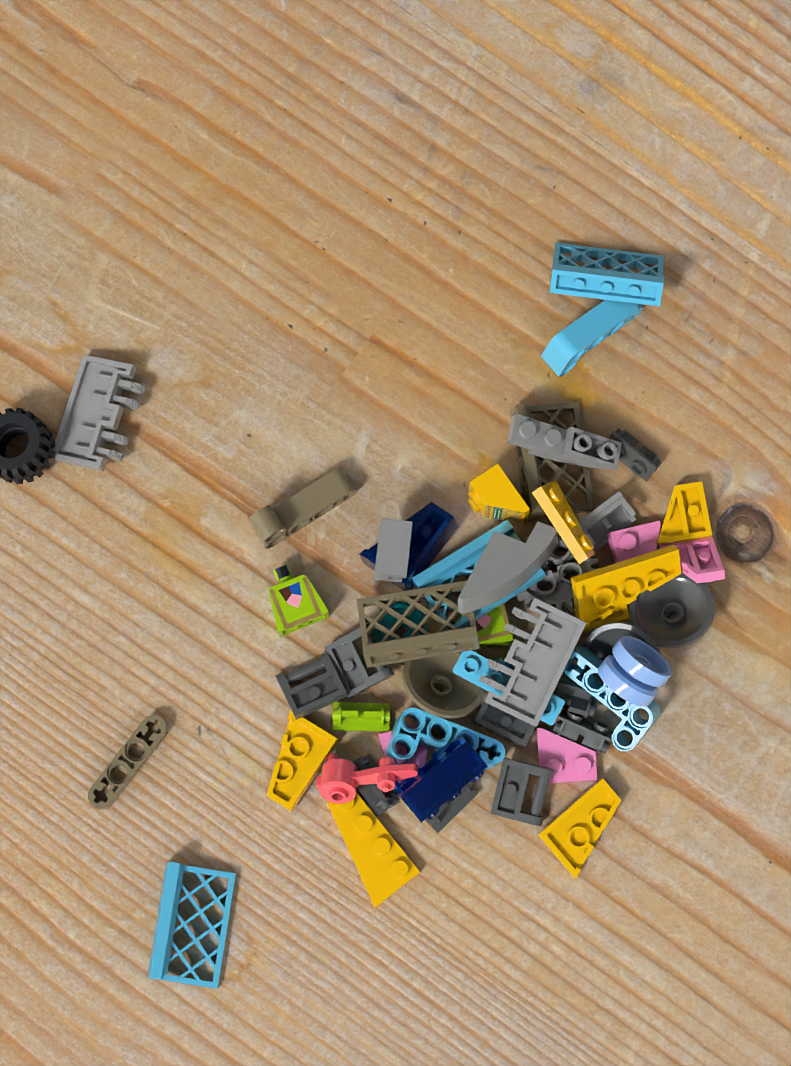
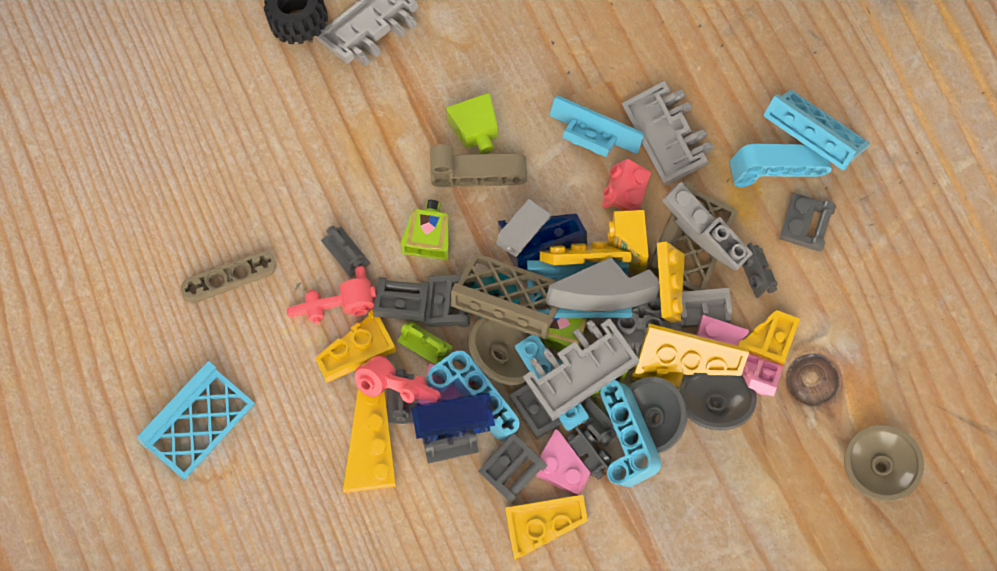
camera: 30 degrees right, 10 degrees down
(224, 668) = (344, 250): none -> dark grey hinge
(266, 711) = (355, 297): none -> coral piece
(269, 460) = (474, 122): none -> lime torso
(390, 400) = (594, 129): none -> medium azure bracket
(457, 441) = (626, 186): none -> coral bracket
(457, 542) = (579, 252): none -> yellow wing
(459, 363) = (665, 132): none -> light grey hinge
(635, 671) = (656, 419): light blue wheel -> none
(641, 377) = (799, 220): none -> dark grey plate

